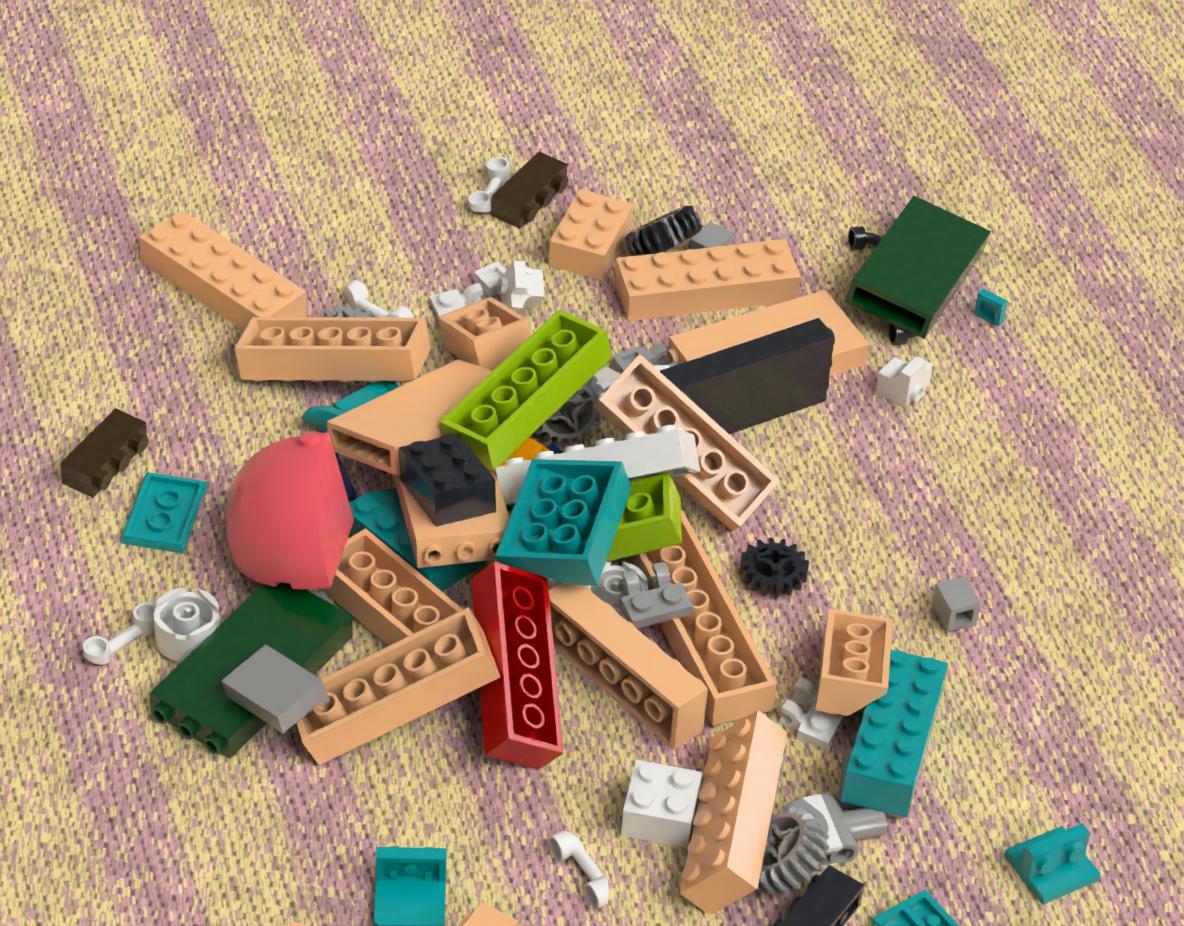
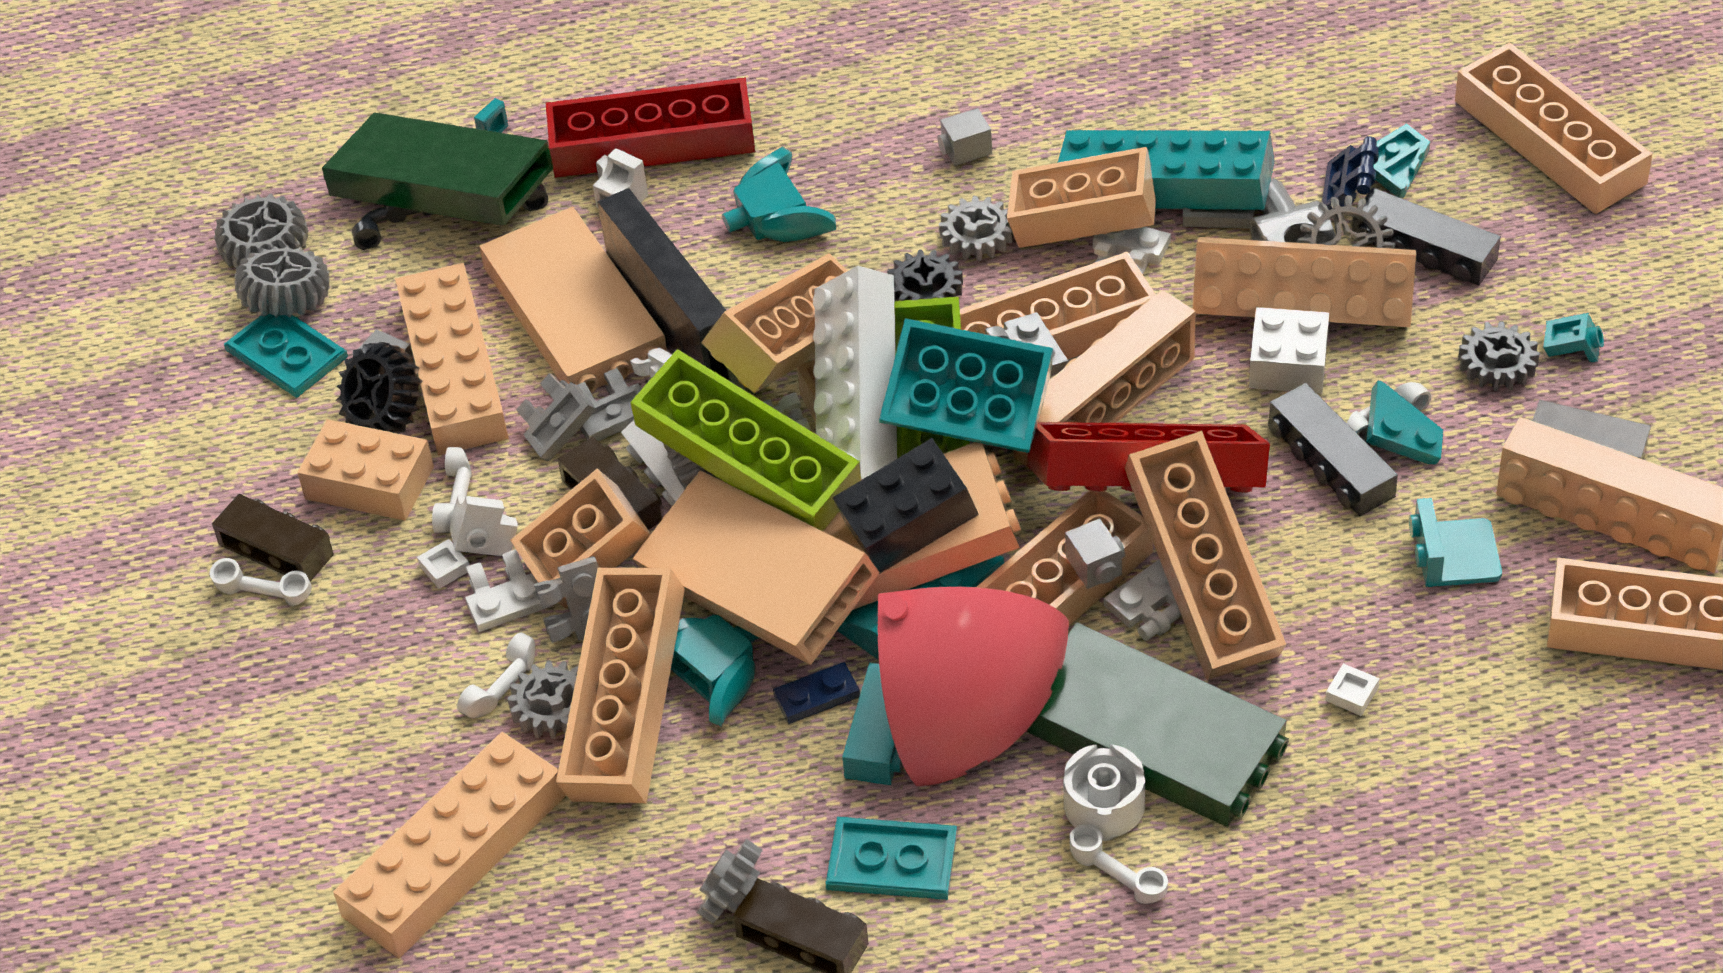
camera: 85 degrees left, 5 degrees up
(146, 405) = (729, 881): none -> light grey gear
(267, 801) = (1352, 689): none -> white plate
(274, 688) = (1227, 664): light grey container -> none
(403, 613) = (1094, 553): none -> light grey brick
(439, 330) = (577, 586): none -> light grey plate
(528, 823) = (1332, 450): none -> brick
(557, 871) = (1402, 427): none -> teal wing
(596, 288) = (455, 465): none -> white bar
(634, 334) = (560, 421): none -> light grey plate
(735, 198) = (286, 352): none -> teal tile
(798, 187) = (282, 281): none -> light grey gear
(838, 596) = (975, 228): none -> light grey gear
(860, 179) = (259, 225): none -> light grey gear
(876, 875) = (1351, 172): none -> dark blue plate
(882, 473) = (773, 205): none -> teal torso
(972, 399) = (651, 125): none -> red brick
(1054, 862) = (1291, 72): teal bracket -> none

